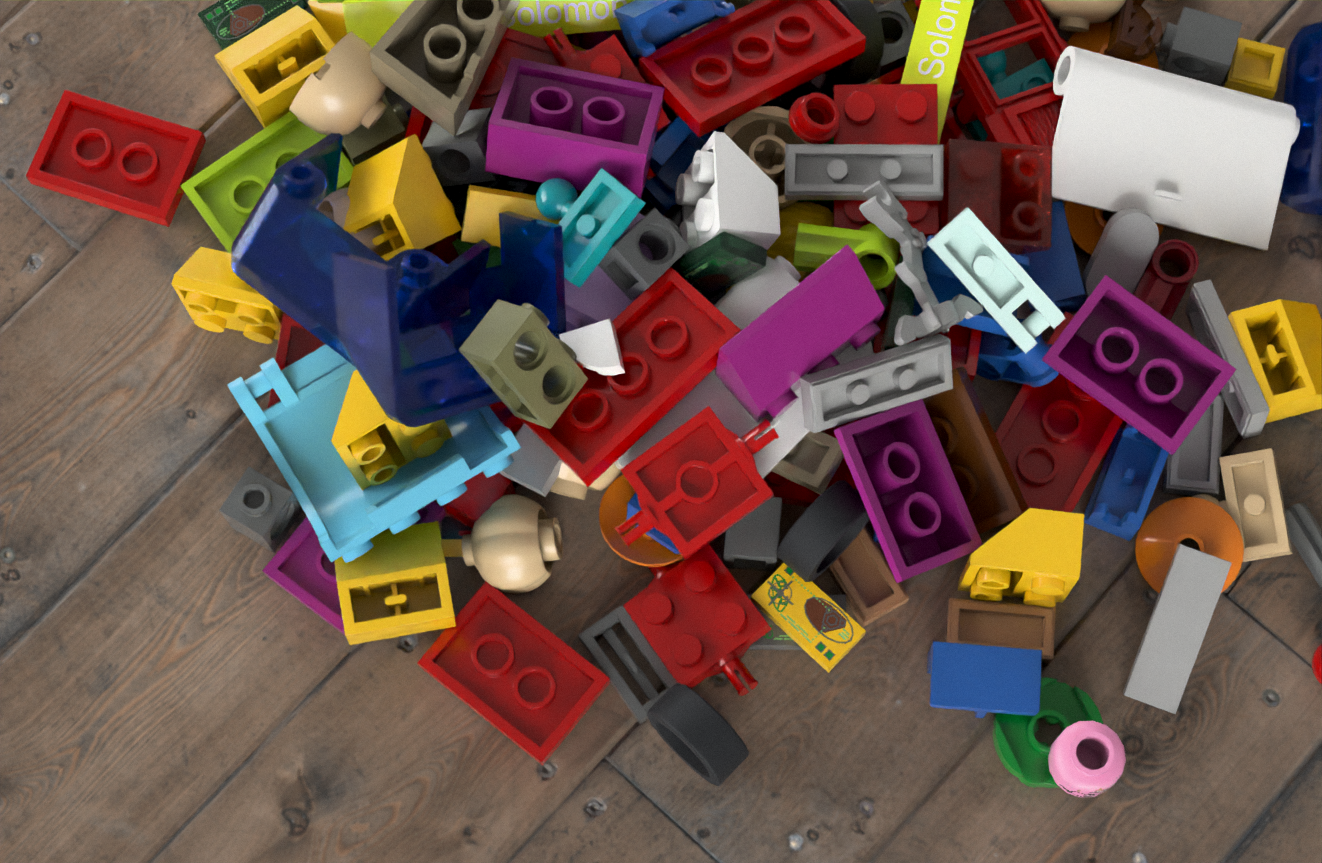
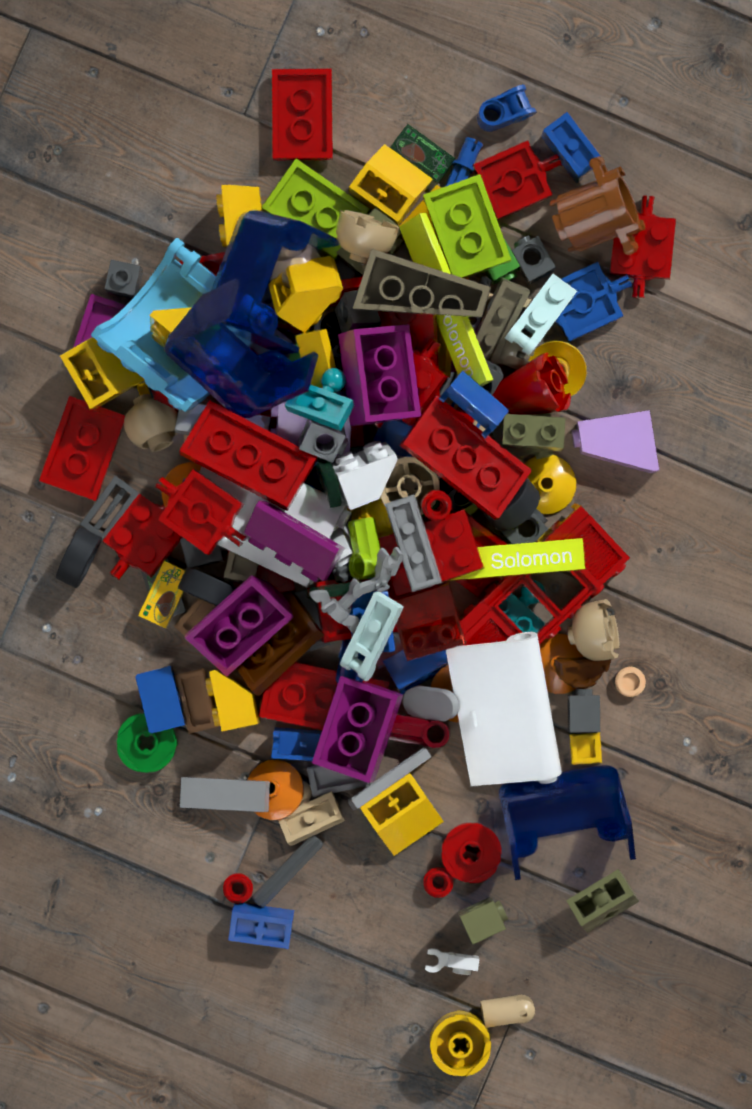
camera: 70 degrees right, 15 degrees up
(524, 362) = (226, 398): olive brick -> none
(596, 347) = (255, 431): white tile -> none
(876, 383) = (286, 589): light grey tile -> none
(1086, 759) = (130, 764): bright pink head -> none

